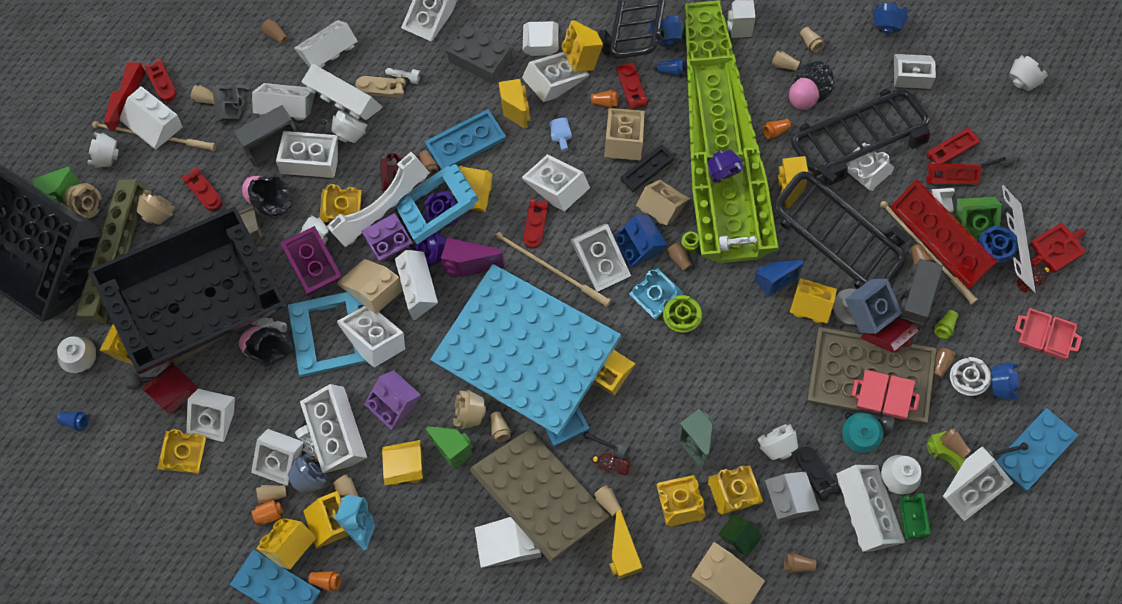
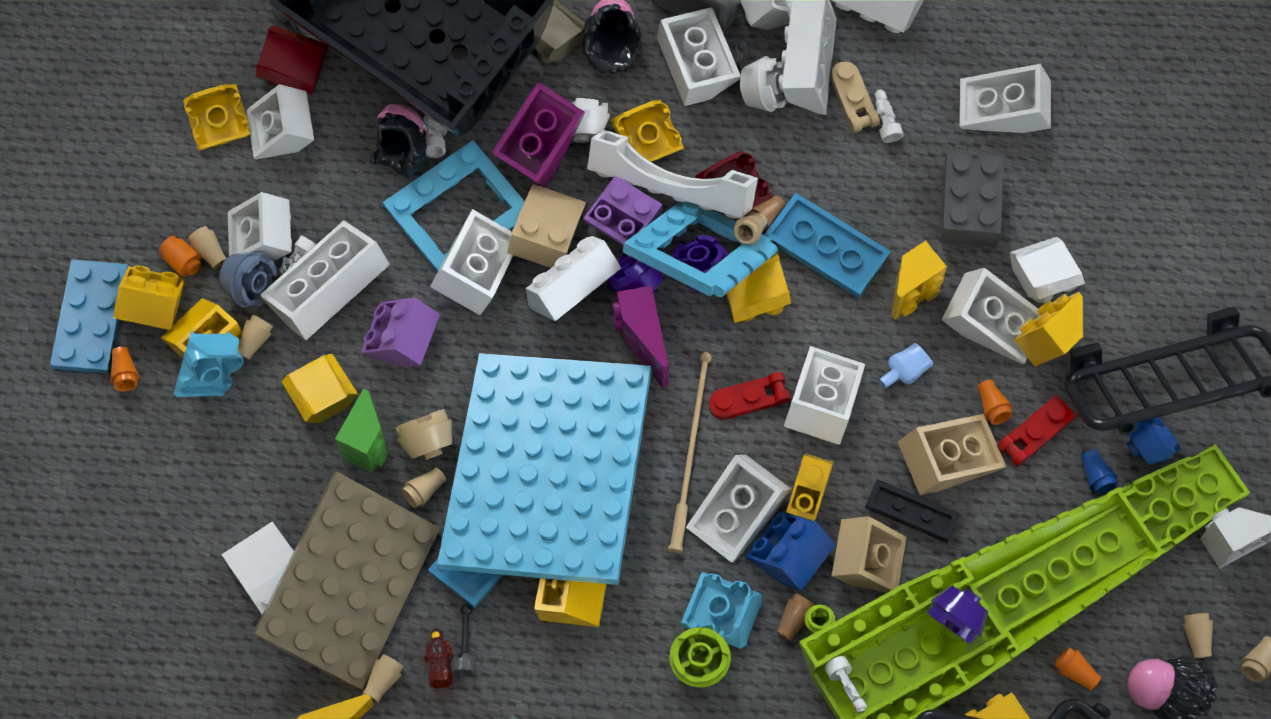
camera: 60 degrees right, 0 degrees up
(438, 171) = (749, 228): none -> tan cone
(607, 212) = (809, 487): none -> yellow slope

